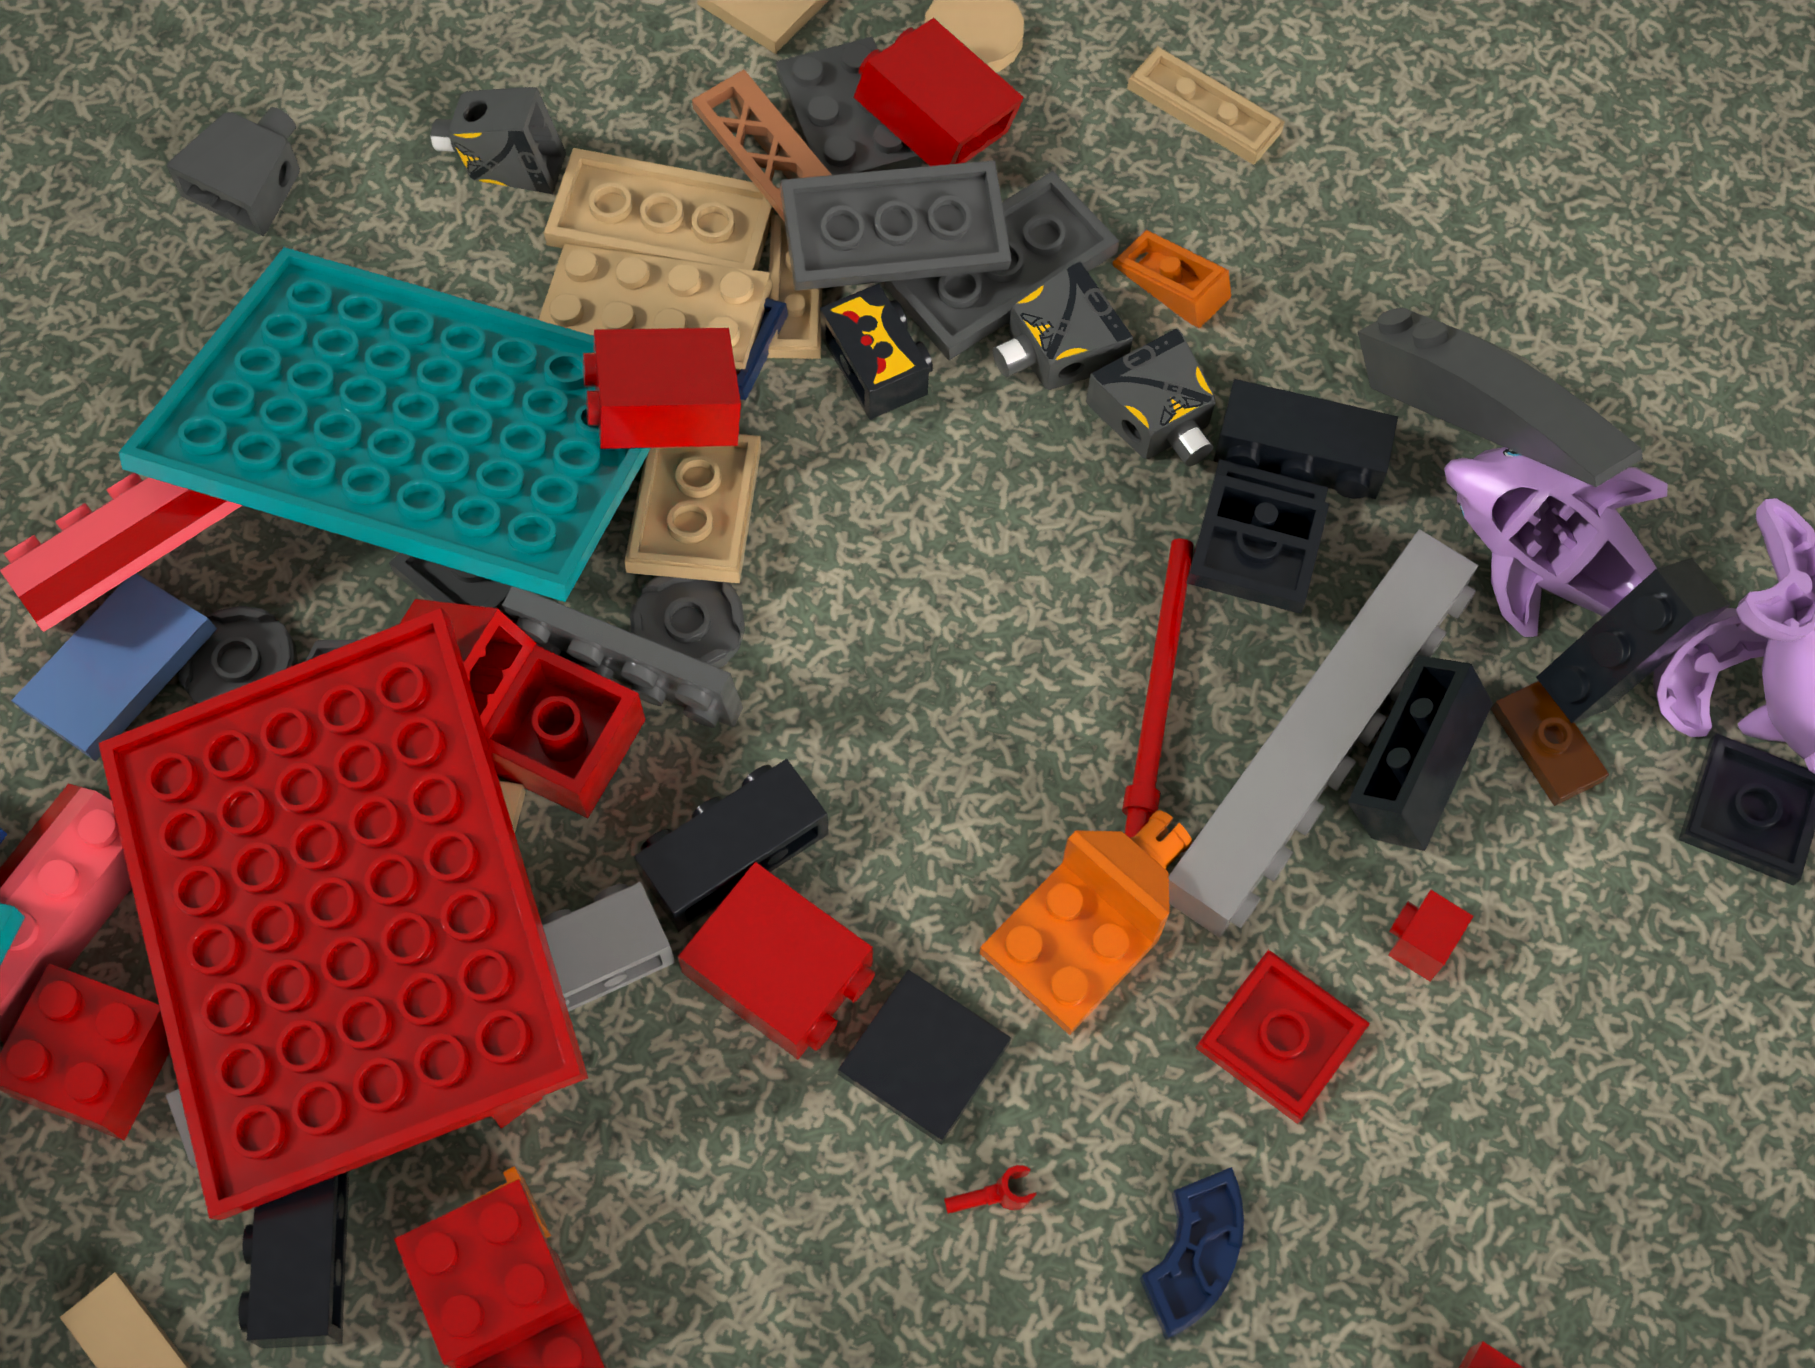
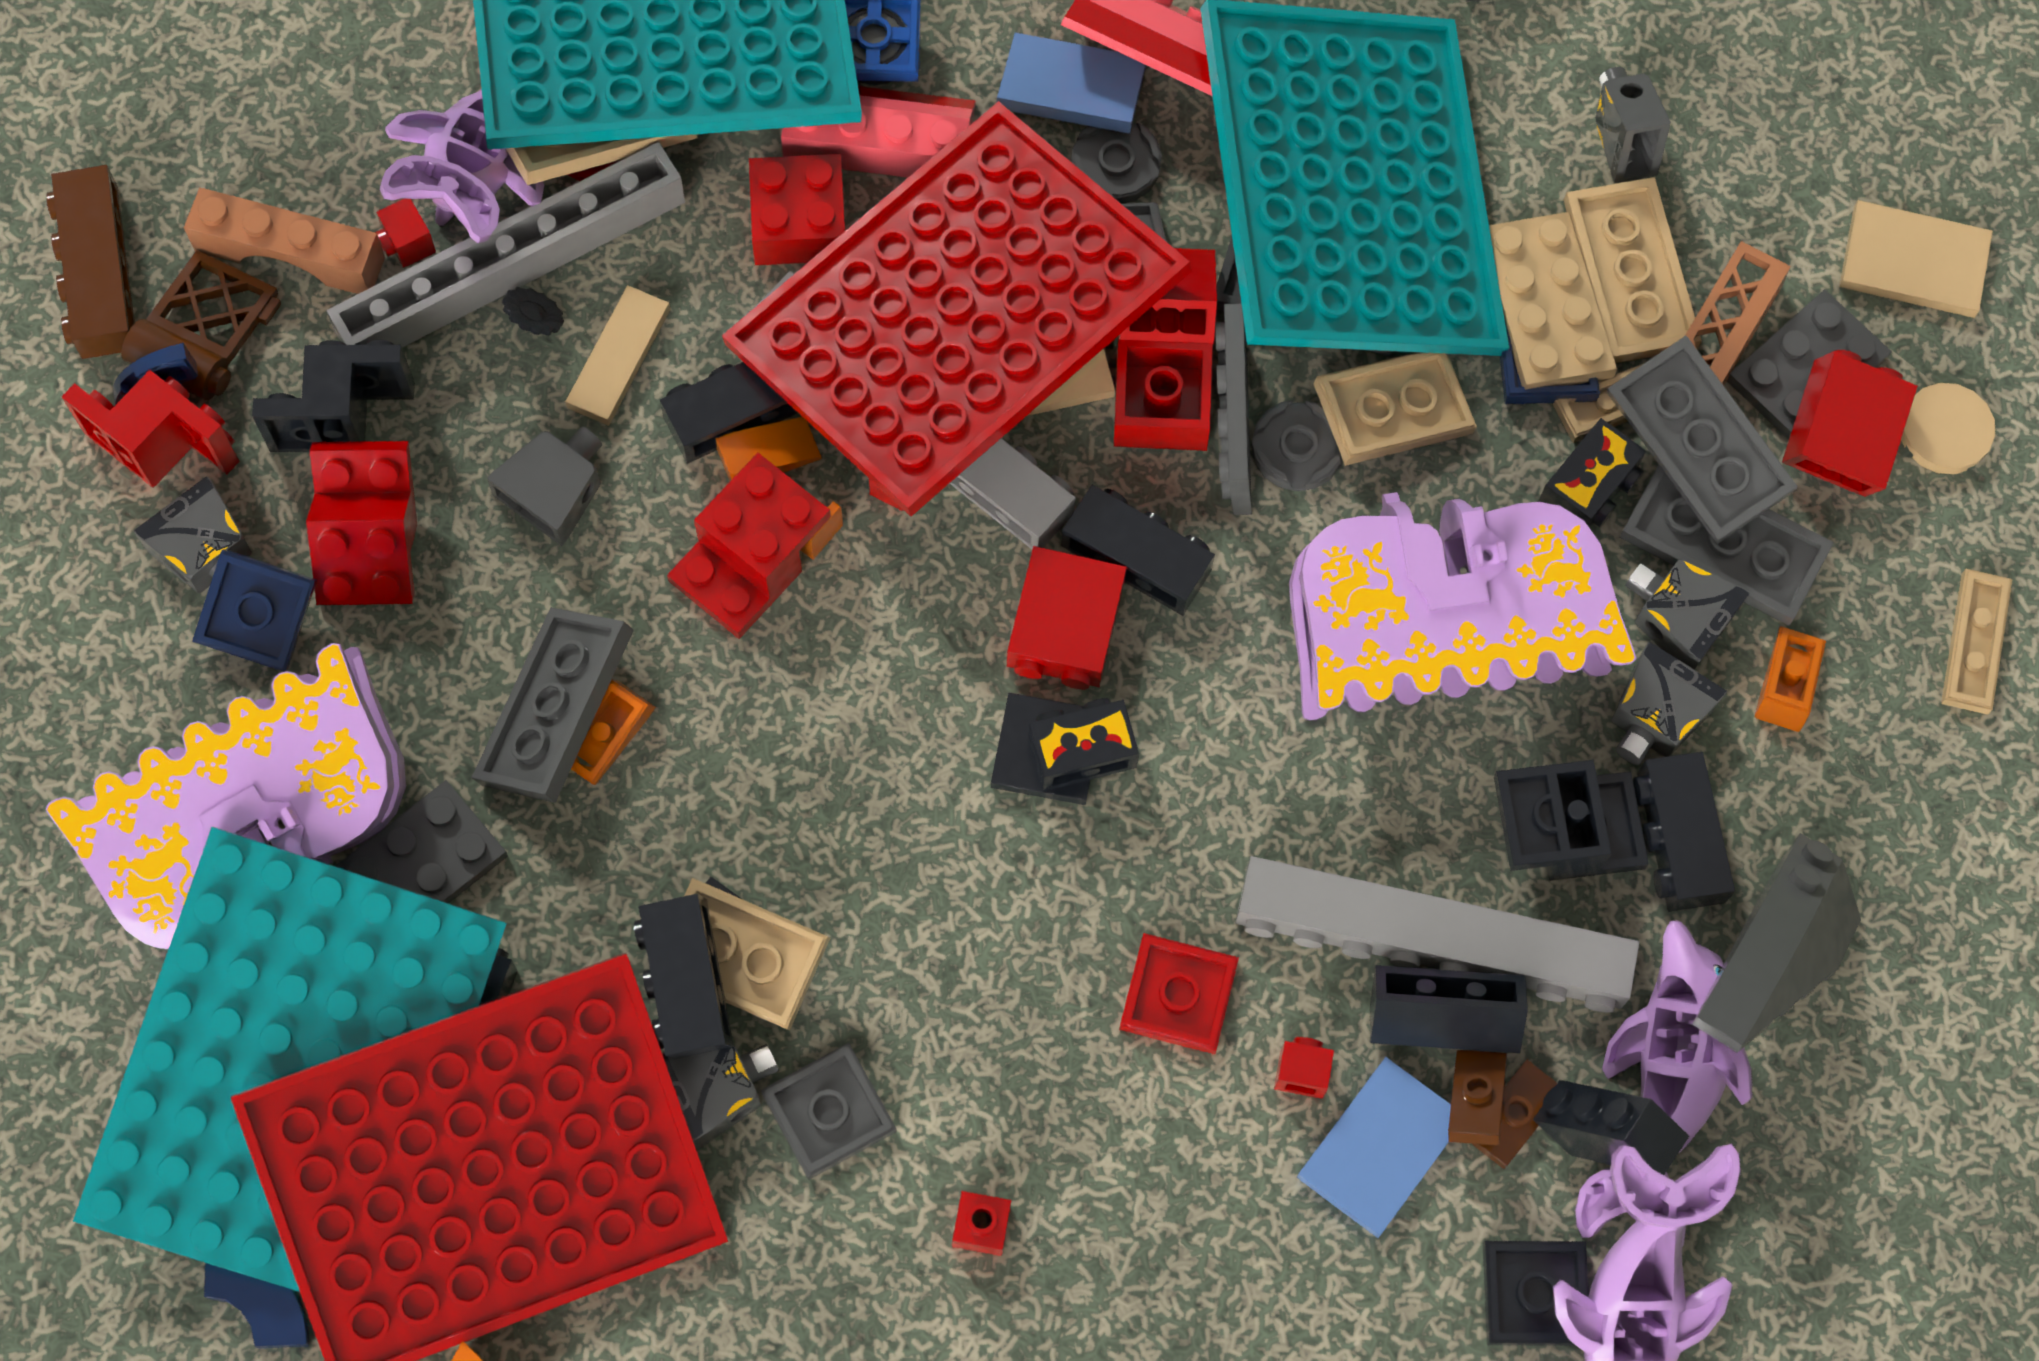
camera: 65 degrees right, 5 degrees up
(381, 1209) = (783, 443): none -> orange slope
(663, 388) = (1463, 334): red brick -> none
(949, 1009) = (1082, 743): none -> black brick
(967, 541) = (1391, 613): none -> lavender animal
(992, 1194) = (969, 833): red hand -> none
(1089, 919) = (1199, 820): orange plate -> none
(1142, 797) = (1315, 823): red bar -> none
(1201, 1255) = (994, 993): dark blue tile -> none
(1530, 767) = (1477, 1097): none -> reddish brown plate
(1541, 895) = (1380, 1147): none -> medium blue tile

